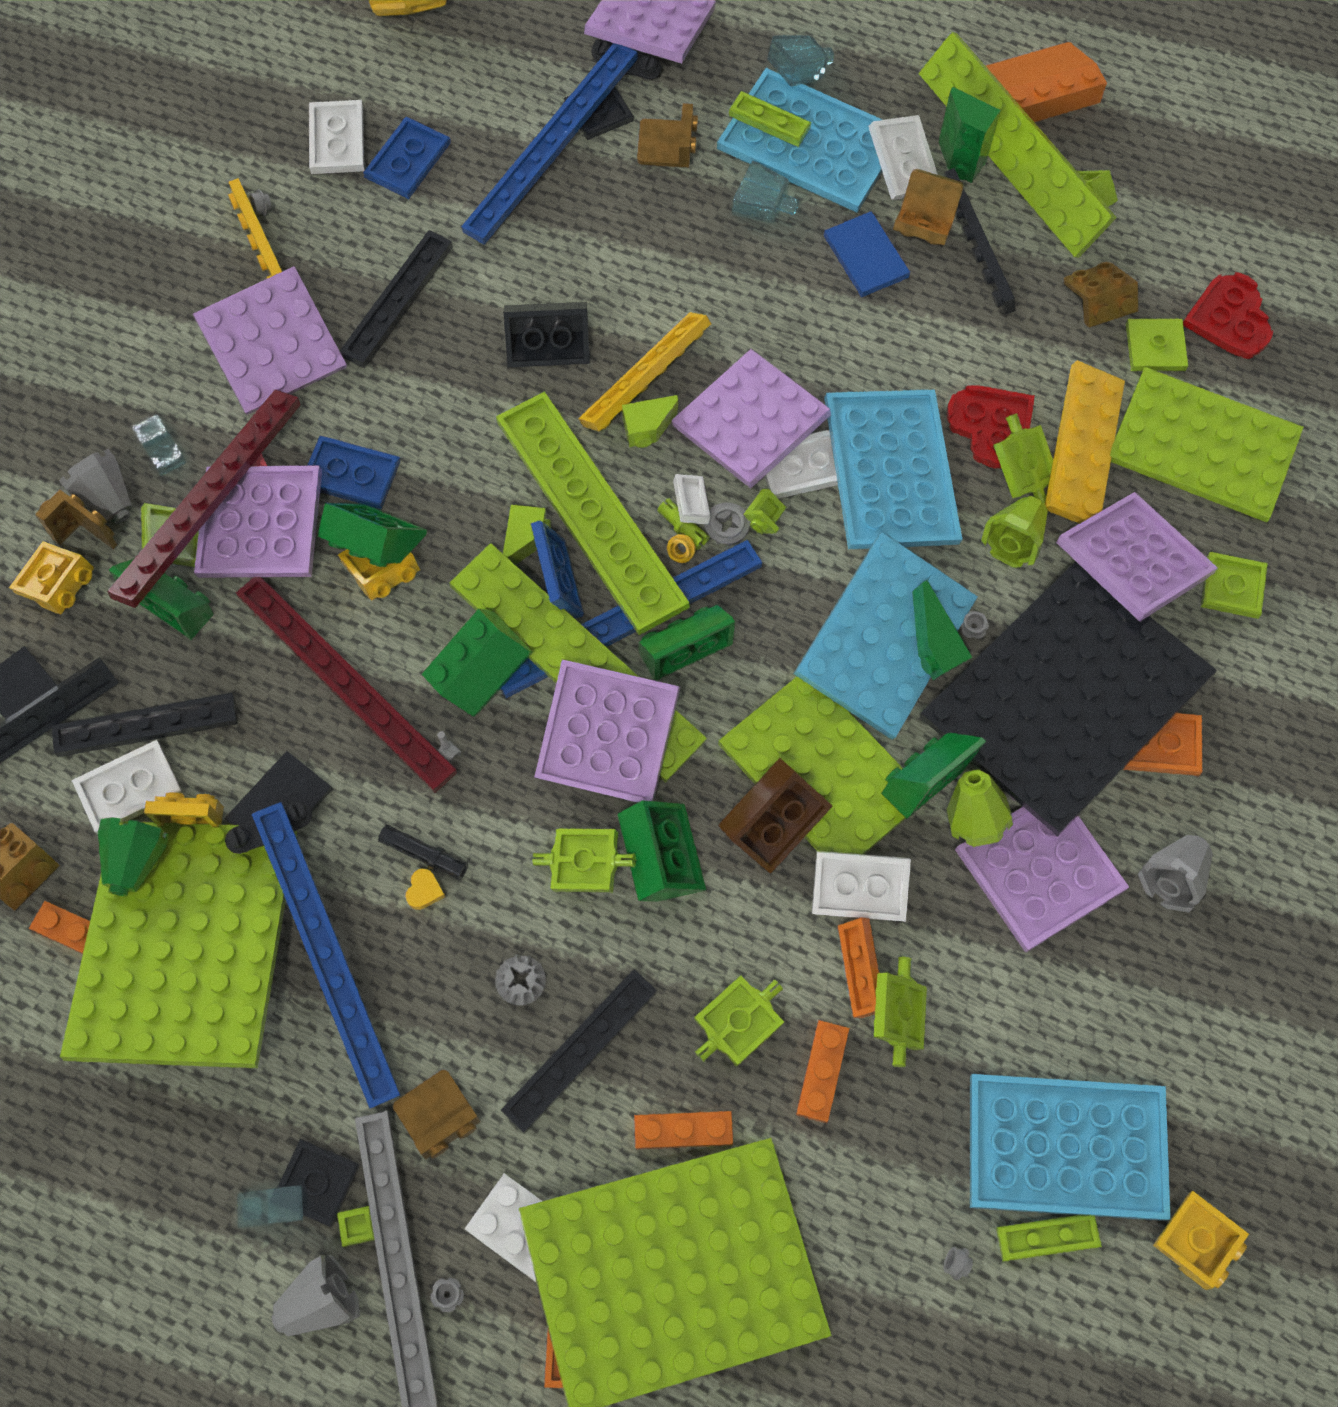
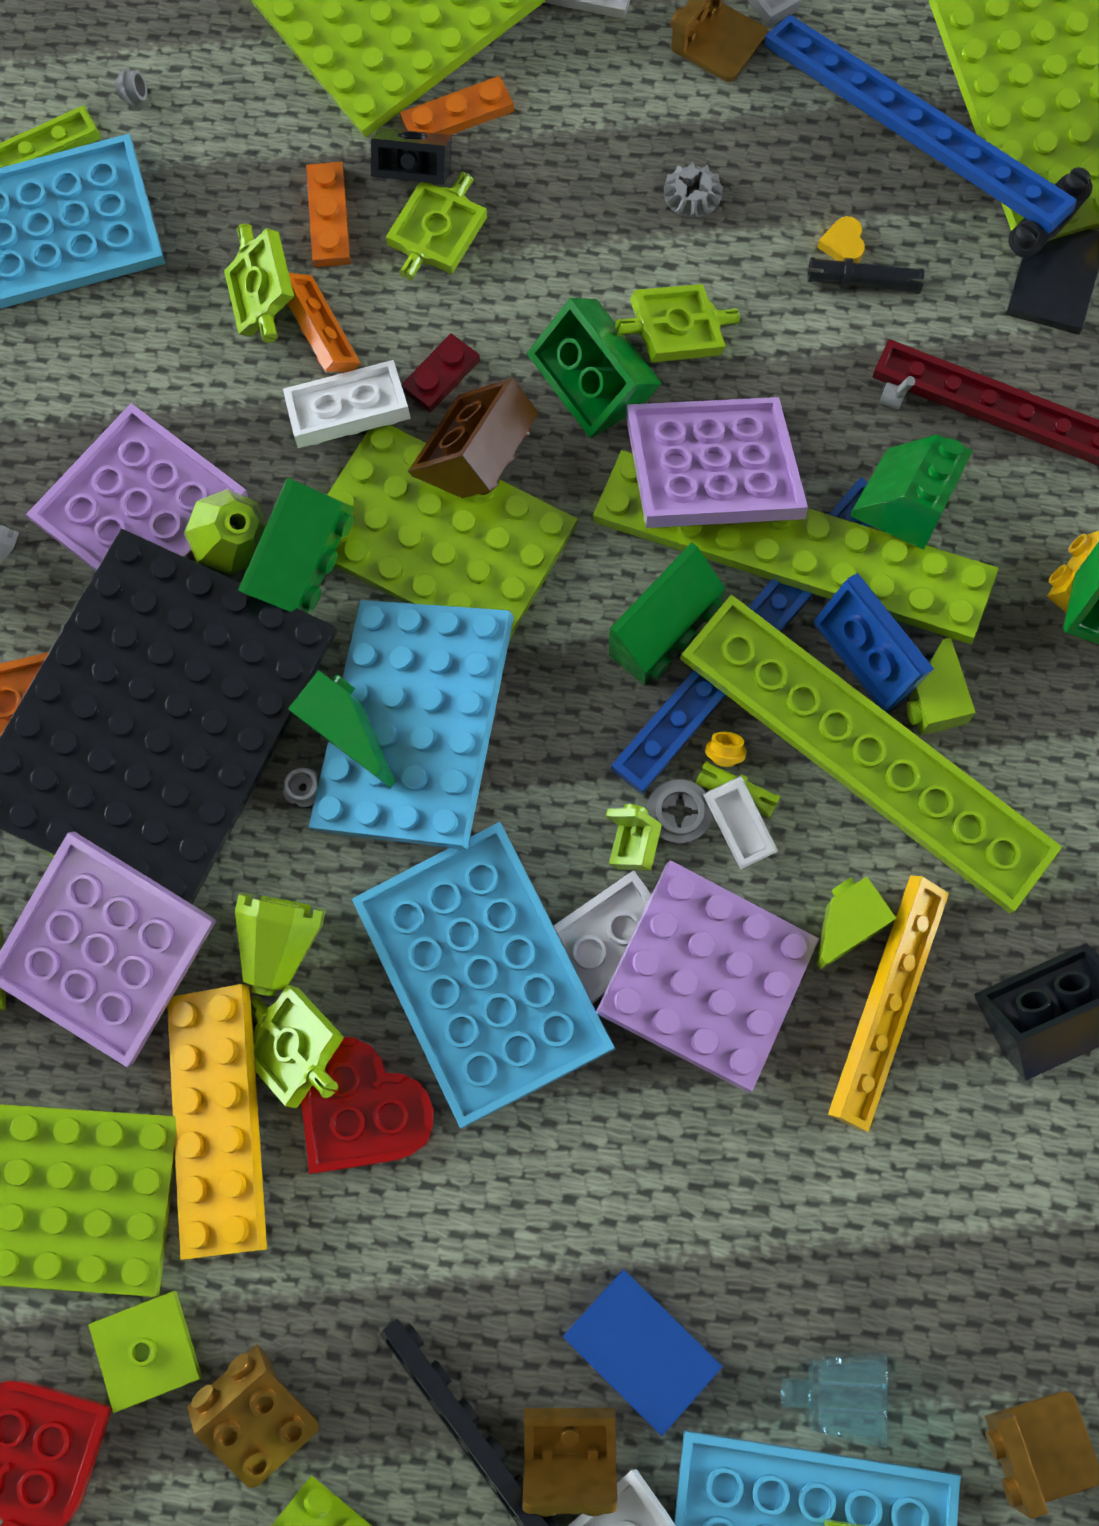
camera: 165 degrees right, 5 degrees up
(578, 1051) = (596, 143): black plate -> none
(755, 1083) = (411, 155): none -> black brick
(778, 895) = (440, 372): none -> dark red plate

